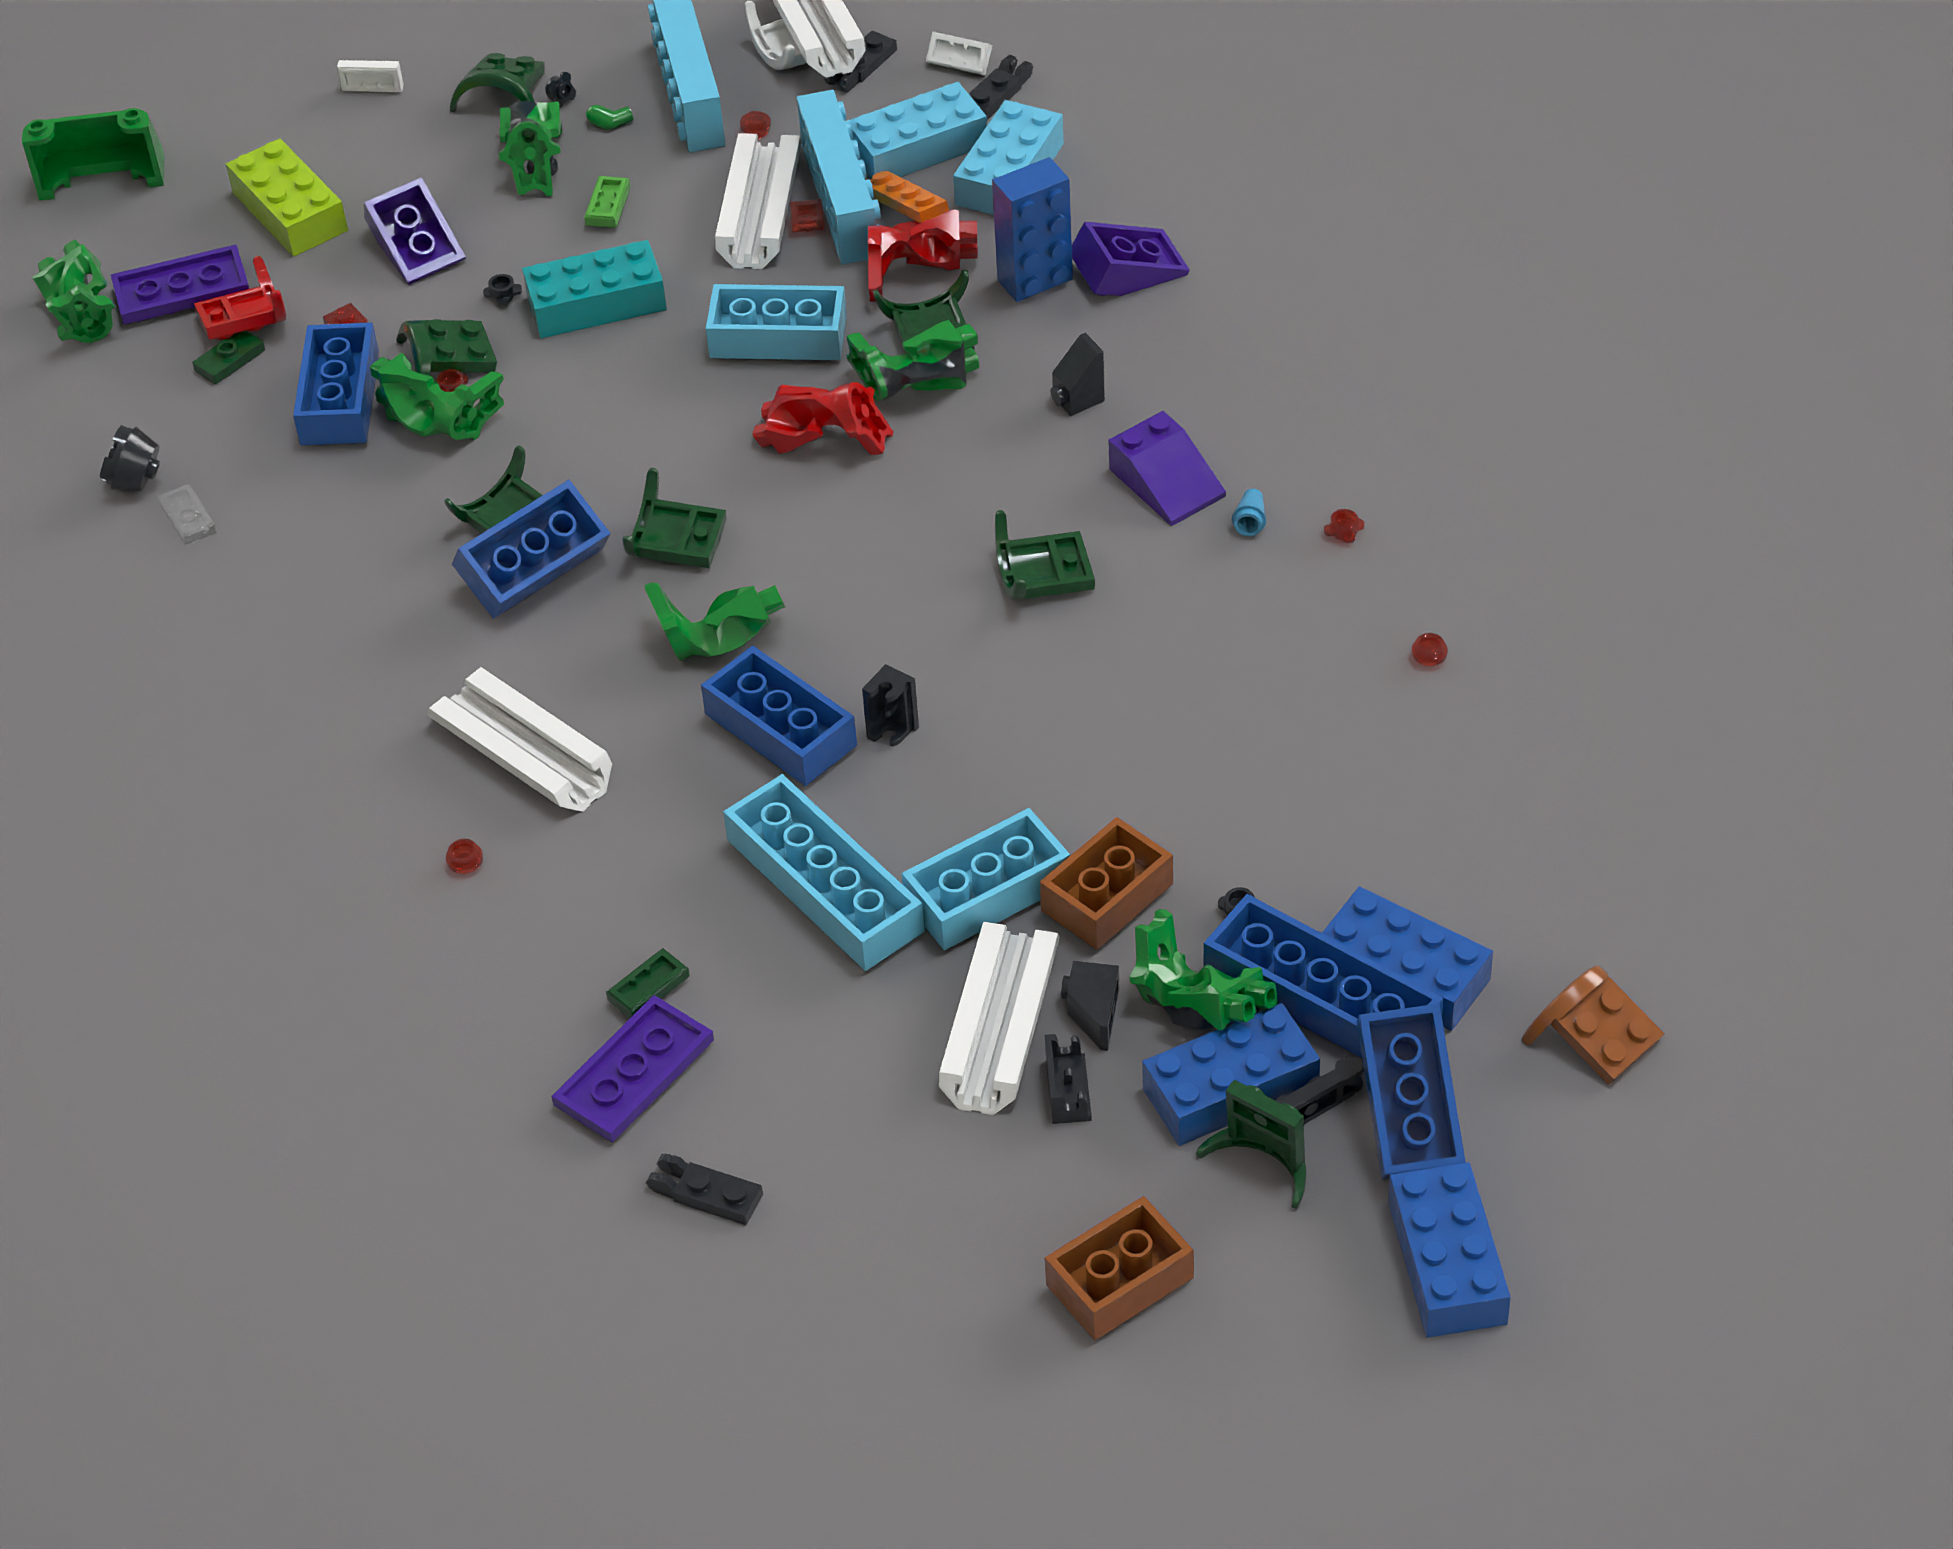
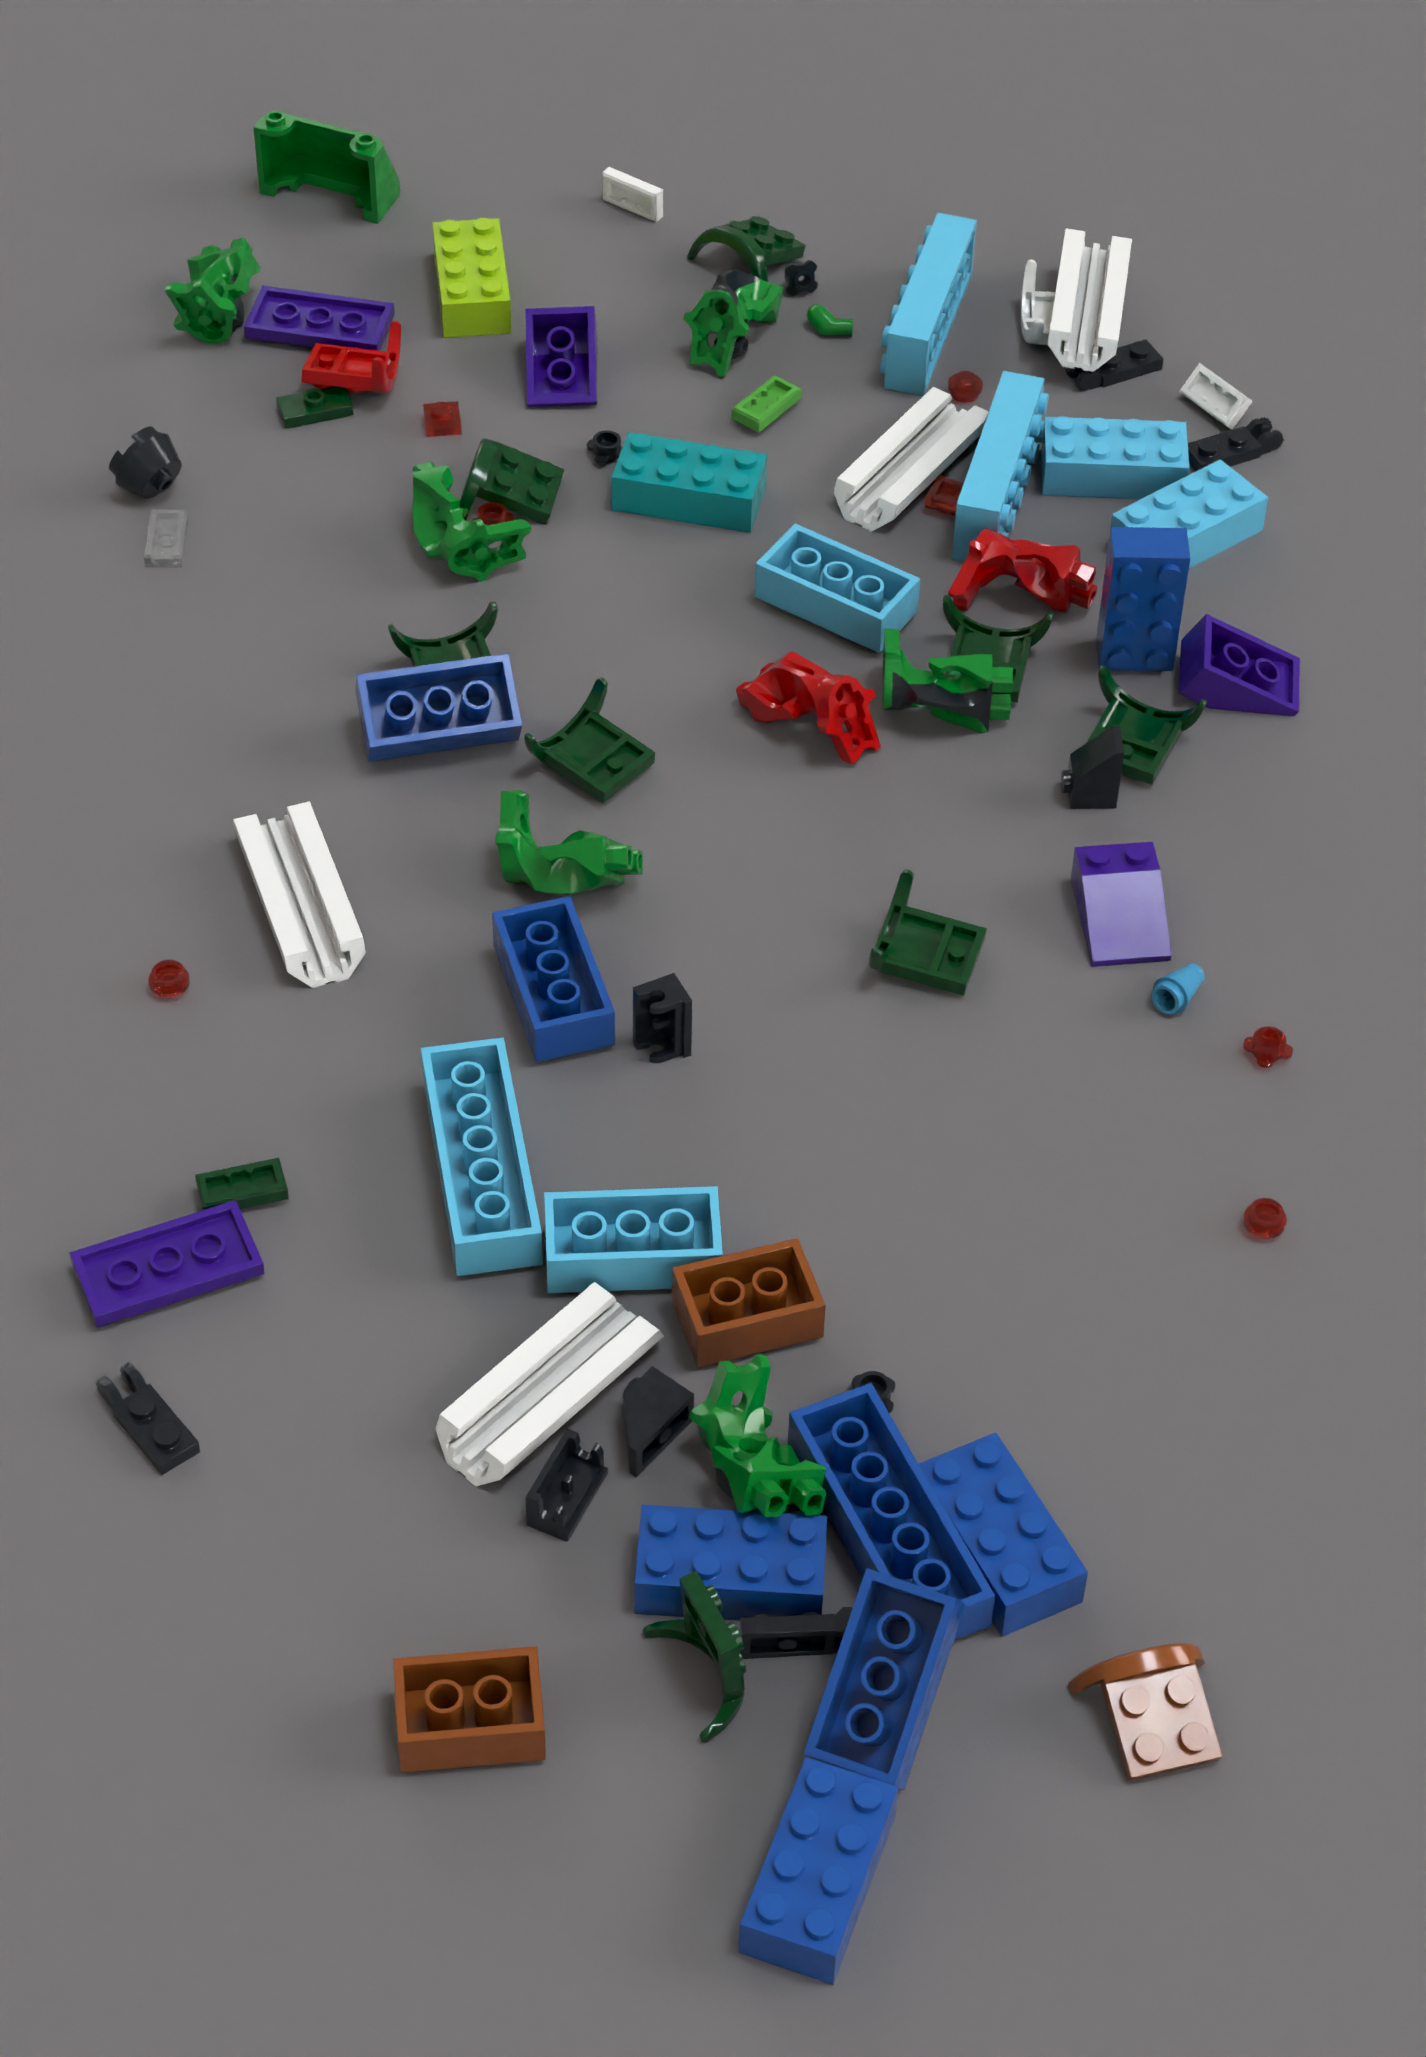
camera: 25 degrees right, 0 degrees up
(336, 384) = (374, 475): blue brick -> none
(907, 197) = (1052, 515): orange plate -> none
(1098, 324) = (1145, 730): none -> dark green piece

